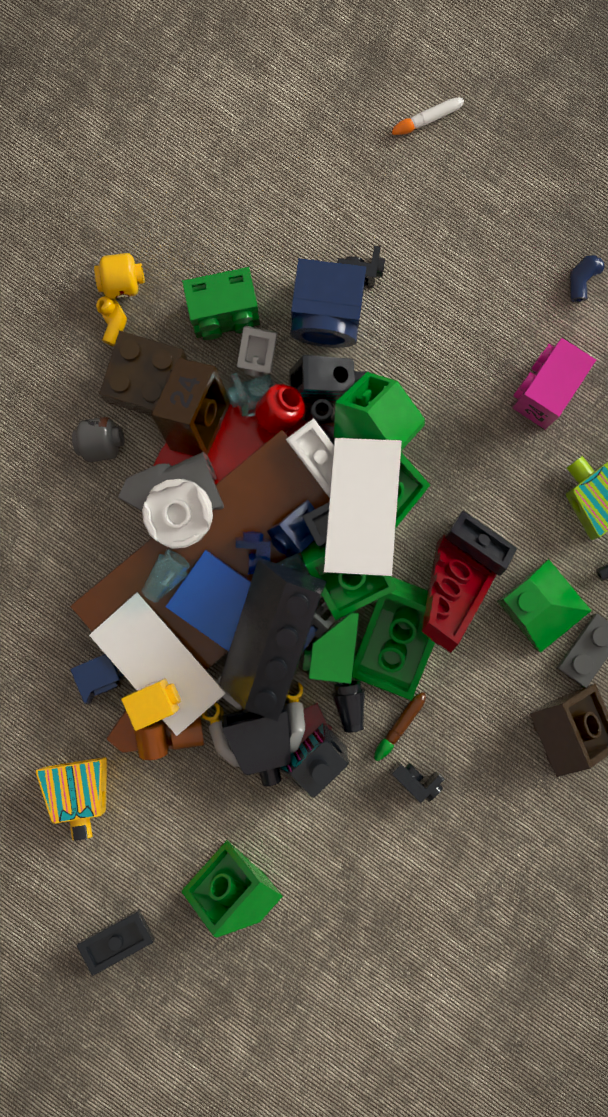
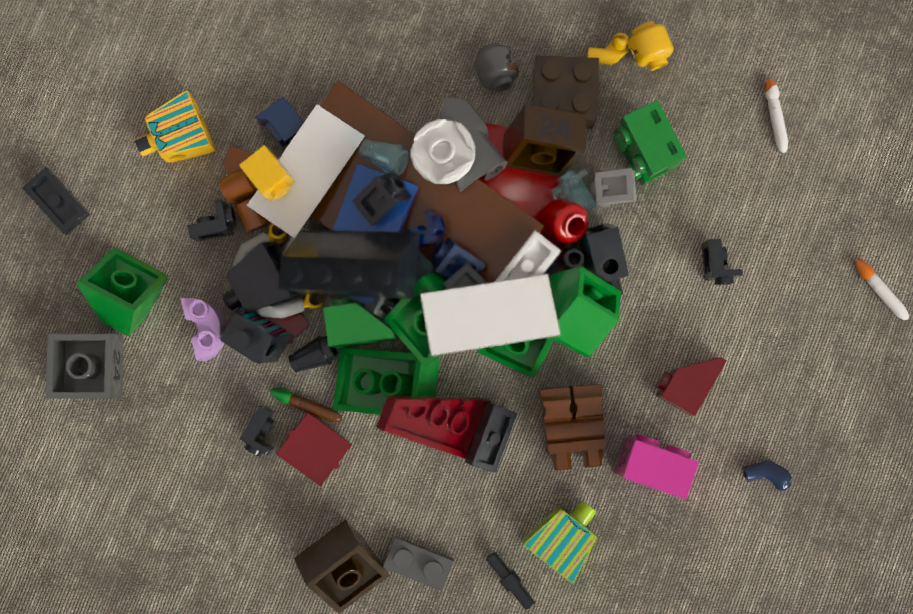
camera: 80 degrees right, 0 degrees up
(188, 783) = (210, 228): none -> black bracket
(201, 169) = (776, 115): none -> white piece
(209, 589) = (381, 197): none -> black bracket
(292, 805) = (210, 326): none -> lavender cylinder
(303, 951) = (84, 366): none -> dark grey brick
(327, 303) = (675, 239): dark blue piece -> none
(447, 729) = (314, 448): none -> dark red piece
(476, 329) = (689, 385): none -> dark red slope
(496, 455) = (578, 433): none -> reddish brown hips
(544, 606) = (449, 511): green slope -> none

